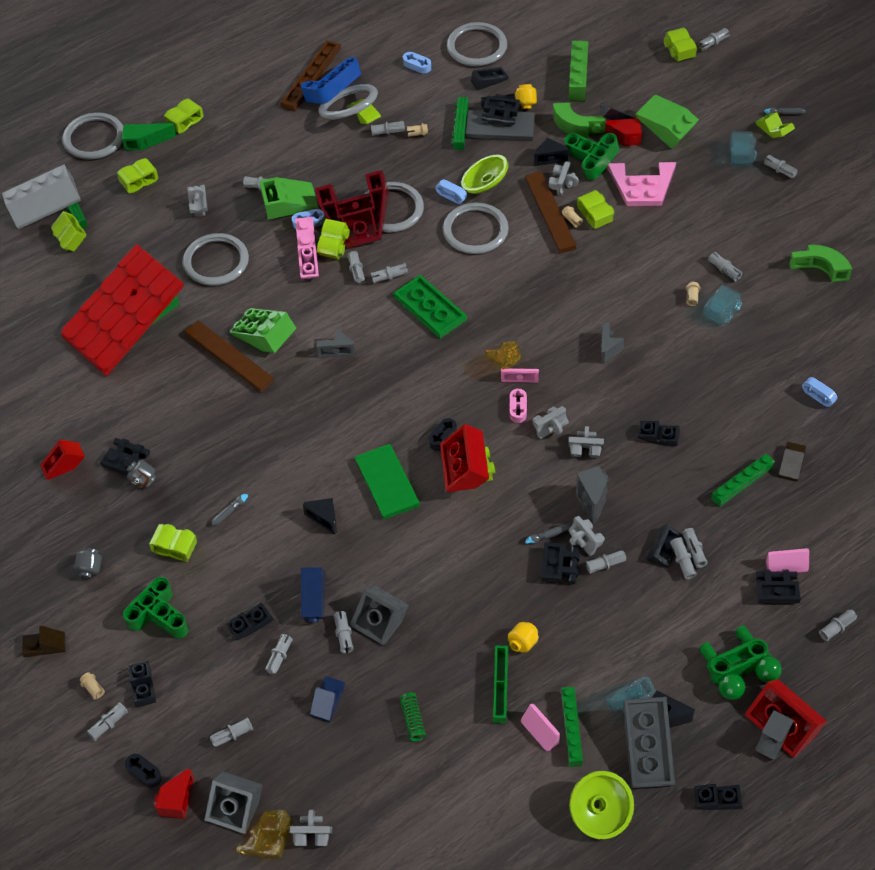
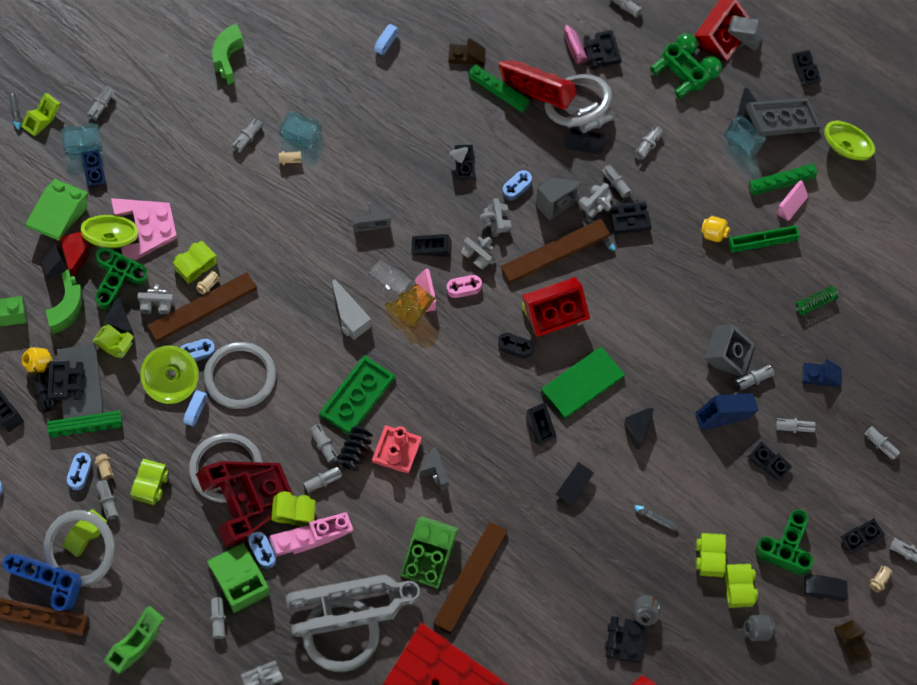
camera: 110 degrees left, 10 degrees up
(102, 631) = (825, 586): none -> black slope
(134, 558) = (740, 585): none -> lime brick
(232, 245) = (399, 595): none -> light grey piece
(257, 127) = (136, 642): none -> bright green arch
(284, 448) = (575, 483): none -> black slope
(353, 434) = (540, 423): none -> black slope
(365, 322) = (397, 449): none -> coral plate
(373, 290) = (353, 448): none -> black piece
(393, 154) = (149, 482): none -> lime brick
(419, 115) = (83, 472): none -> light blue beam
(507, 202) = (197, 350): none -> light blue beam
(514, 309) = (351, 315): none -> light grey slope
(527, 146) = (112, 341): none -> lime brick
(536, 488) = (555, 251): none -> reddish brown tile
(543, 350) = (388, 277): none -> clear slope
(569, 390) = (431, 251): none -> black slope
(619, 473) = (514, 183): none -> light blue beam
(637, 150) = (109, 231): none -> lime dish
(647, 603) = (648, 142): none -> light grey pin
(662, 420) = (458, 154): none -> light grey slope
(697, 560) = (580, 121): none -> light grey wedge
(706, 156) = (93, 168): none -> dark blue slope
(736, 502) = (538, 83): none -> red slope

